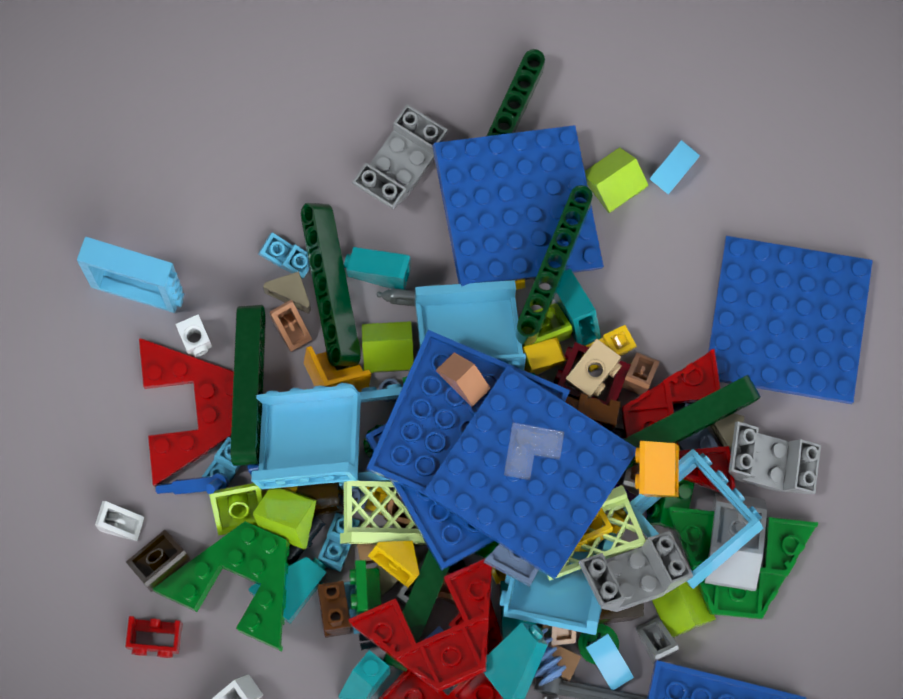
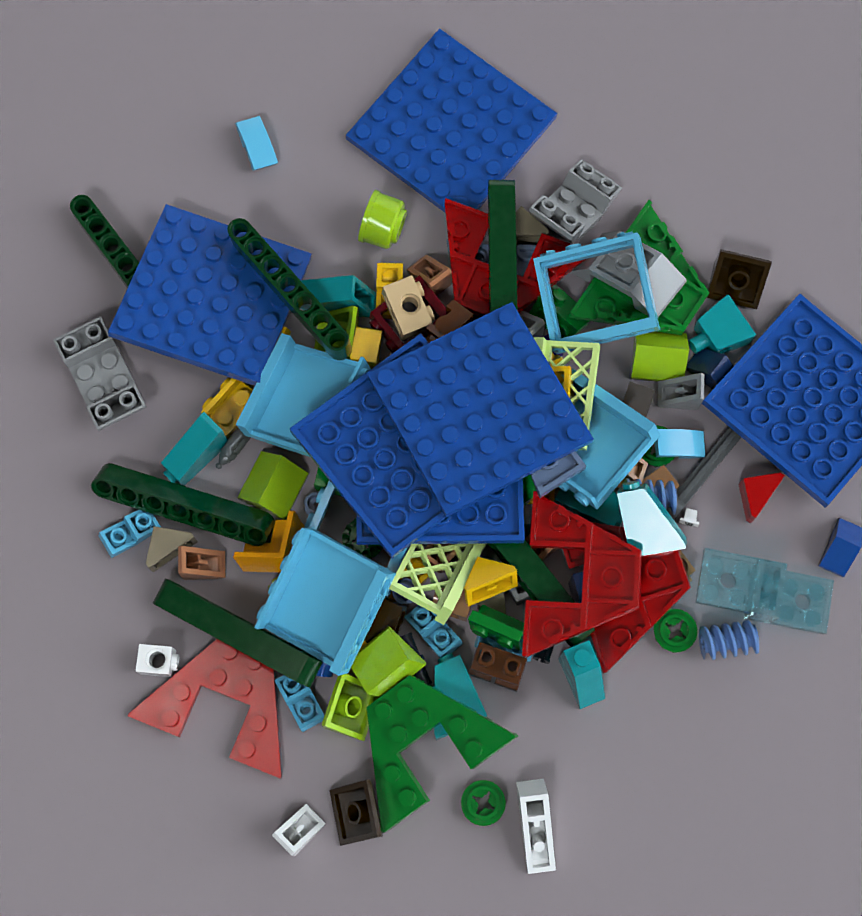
camera: 60 degrees left, 0 degrees up
(130, 275) = (62, 686): medium azure window -> none
(153, 626) = (420, 849): red window -> none
(193, 485) = (313, 717): blue piece -> none
(210, 648) = (496, 799): none -> green gear
(431, 271) = (227, 404): none -> yellow bracket
(464, 378) = (356, 419): nougat slope -> none
(530, 441) = (454, 397): clear plate -> none
(615, 179) = (236, 196): lime slope -> none
(637, 574) = (626, 363): light grey slope -> none
(658, 469) = (540, 295): light orange slope -> none
(663, 307) = (382, 220): none -> lime wheel
(695, 652) = (711, 364): none -> dark blue slope
(734, 646) = (722, 329): none -> teal torso
(788, 637) = (740, 277): none -> dark brown slope

